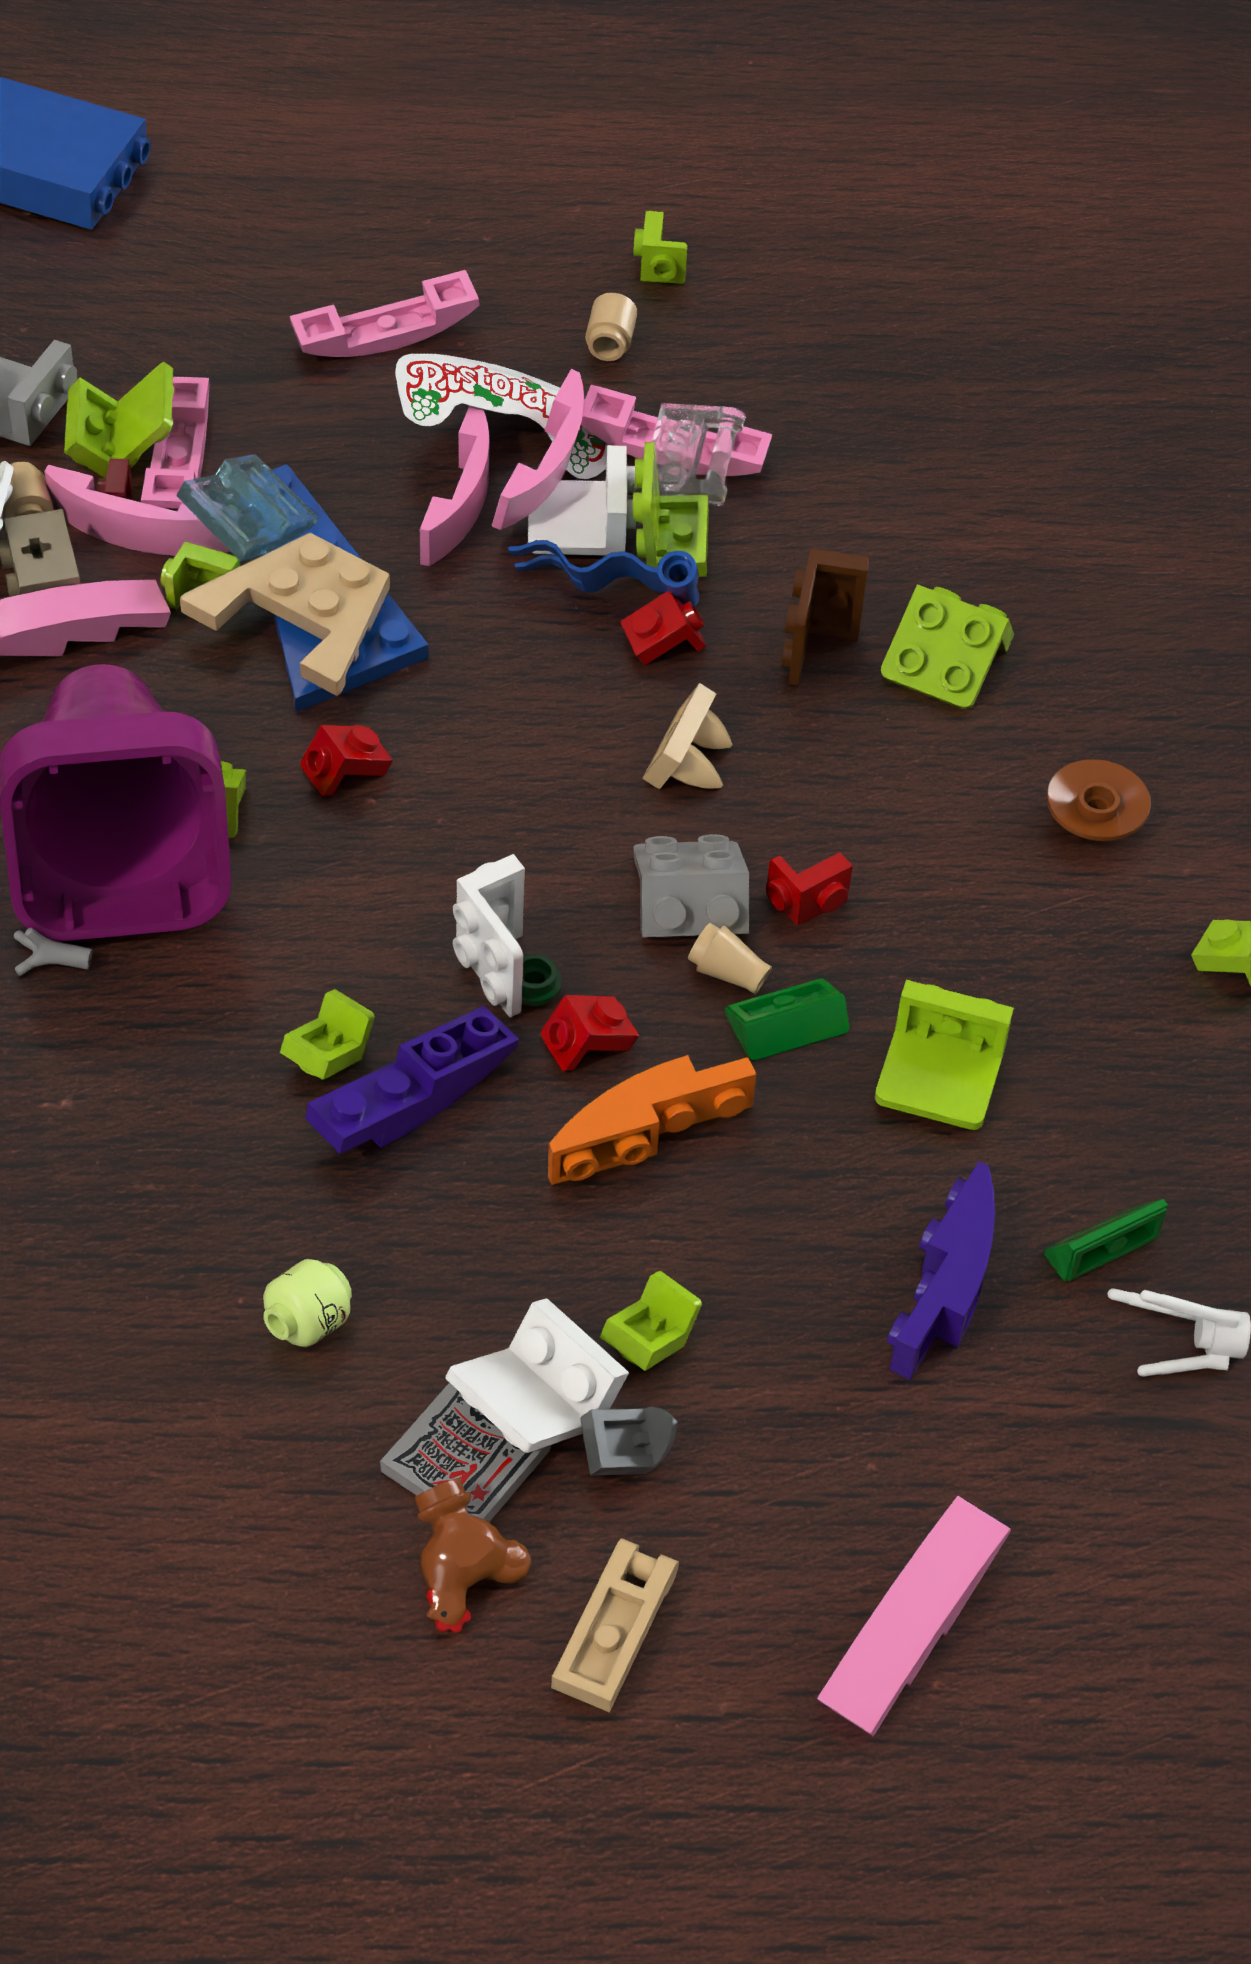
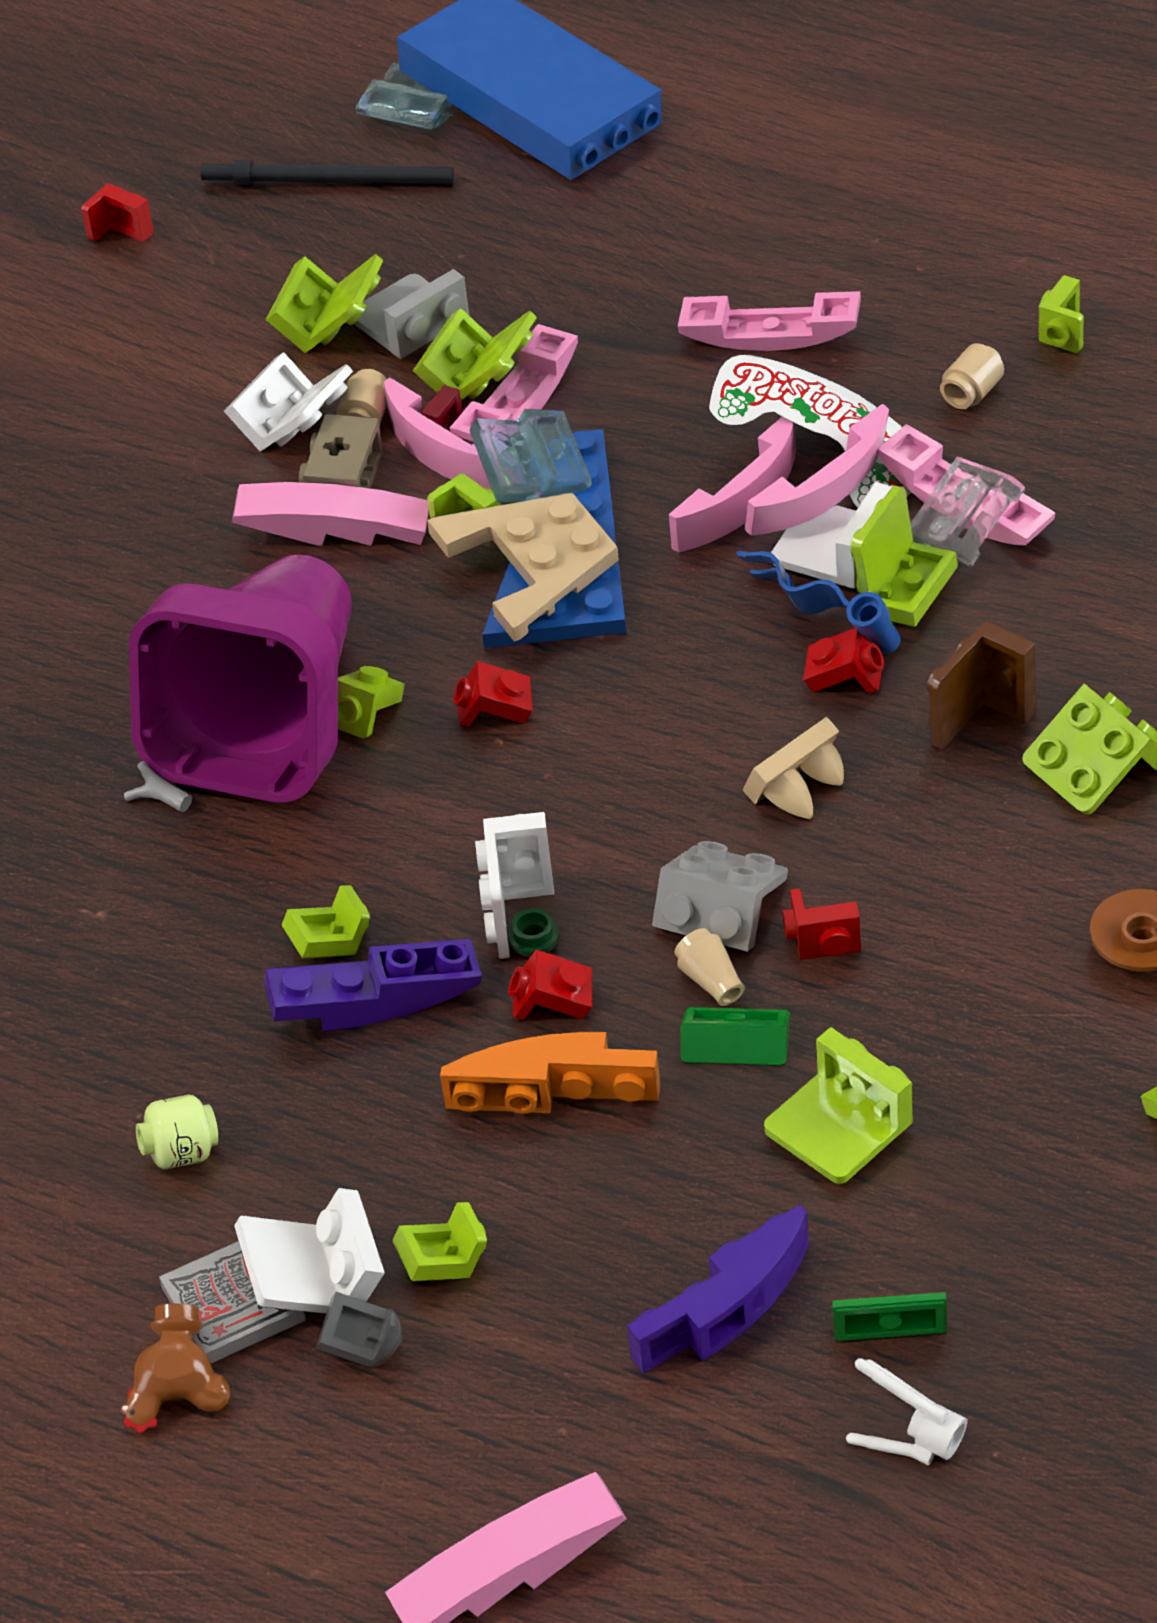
camera: 35 degrees right, 5 degrees down
(613, 1626) = (261, 1471): tan plate -> none

